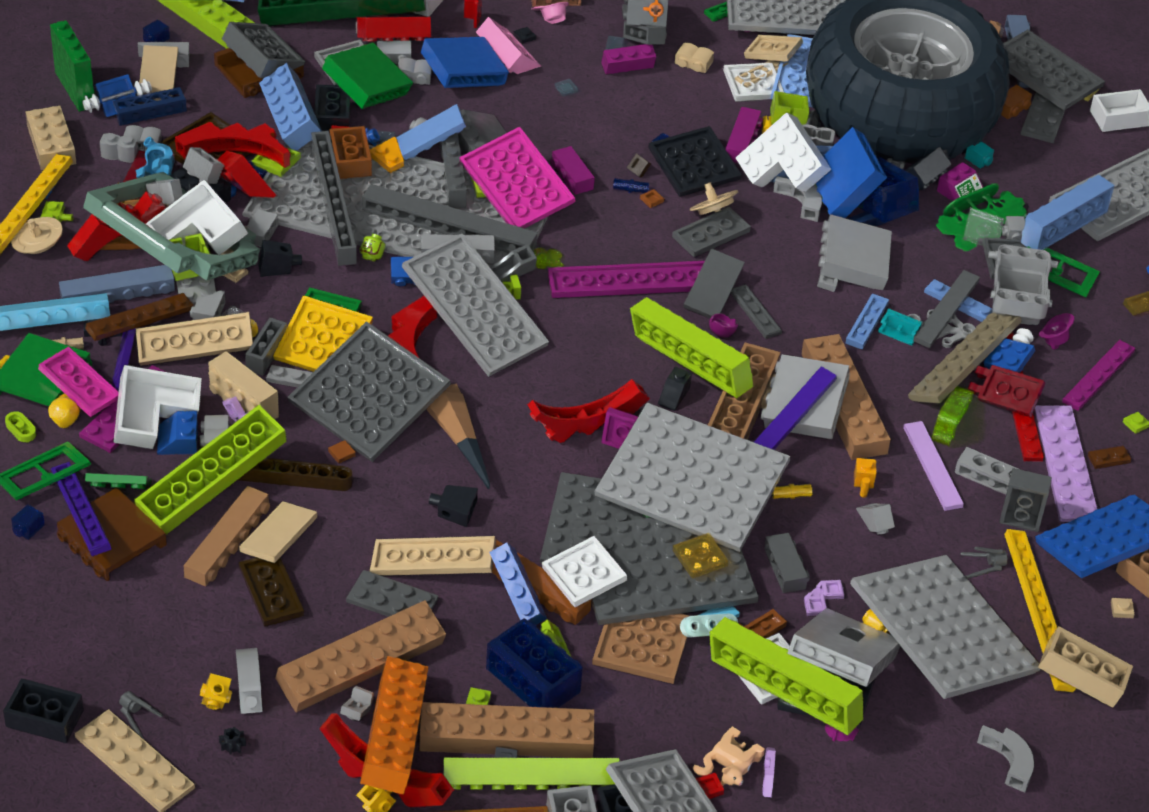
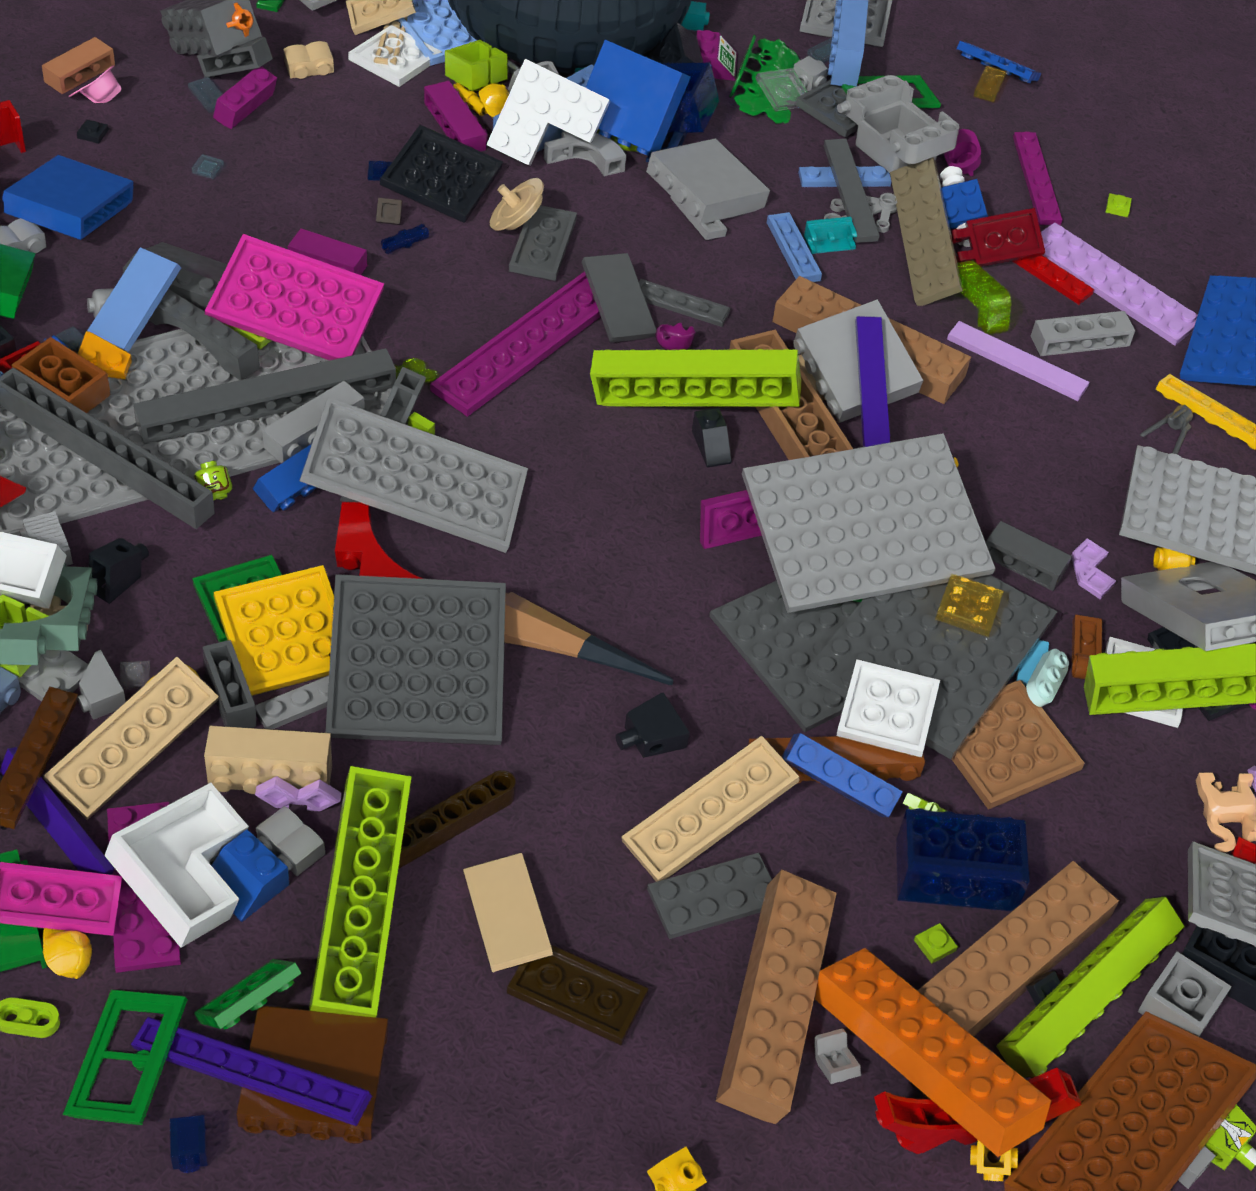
camera: 45 degrees left, 5 degrees up
(226, 536) = (455, 966): medium nougat brick -> none
(249, 680) = (689, 1116): light grey arch -> none
(341, 451) = (455, 756): dark orange tile -> none
(507, 47) = (92, 153): bright pink slope -> none
(587, 418) = (670, 533): red arch -> none
(652, 198) = (440, 240): dark orange tile -> none
(864, 475) = (982, 410): light orange brick -> none
(877, 517) = (1041, 447): light grey slope -> none
(1025, 500) = (1153, 339): dark grey brick -> none
(1109, 457) = (1138, 253): reddish brown plate -> none

